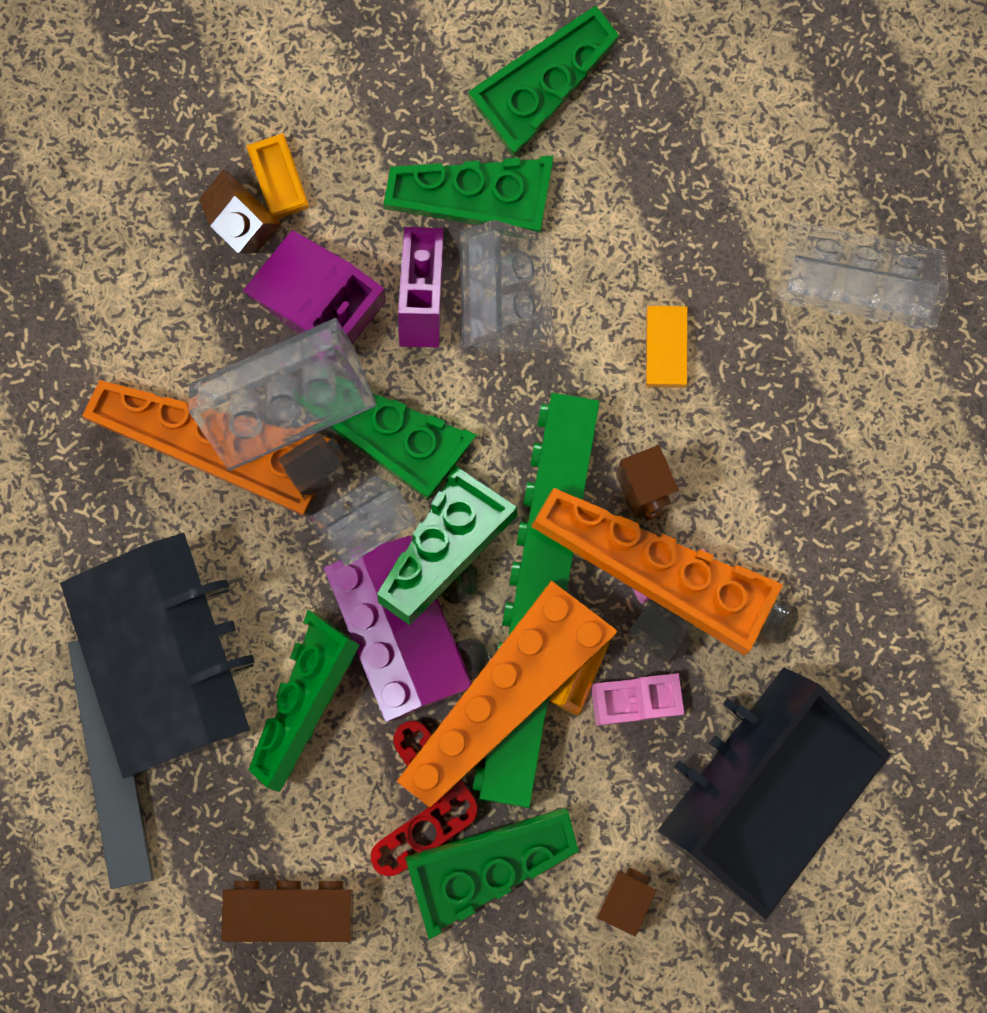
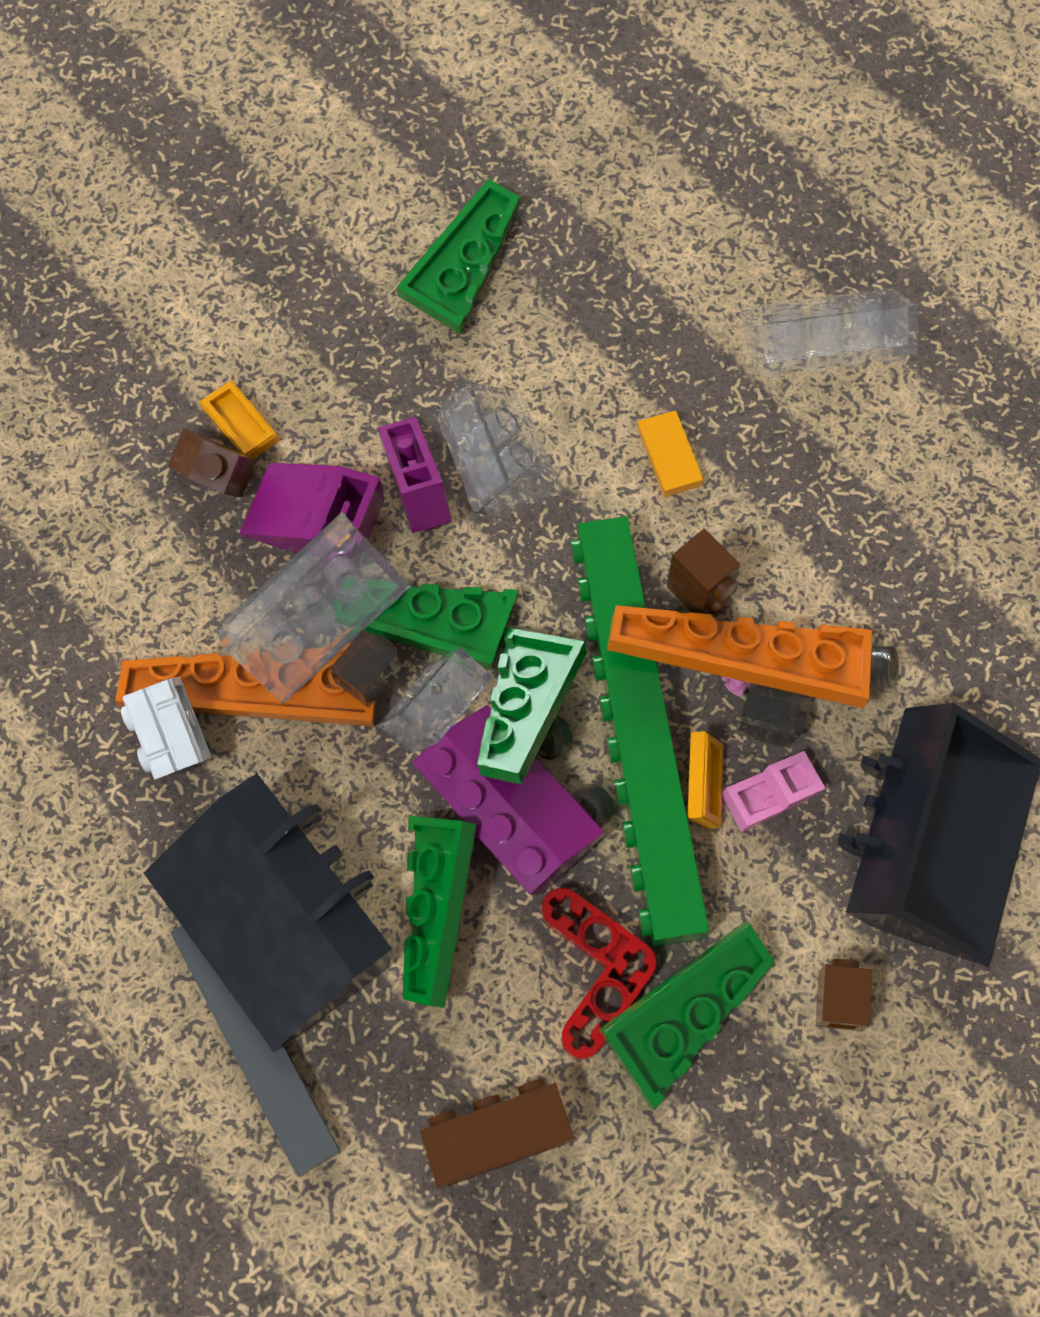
camera: 15 degrees left, 10 degrees down
(118, 459) = (165, 728): none -> white brick
(473, 191) = (430, 373): green wing -> none
(529, 667) = (654, 793): orange wing -> none

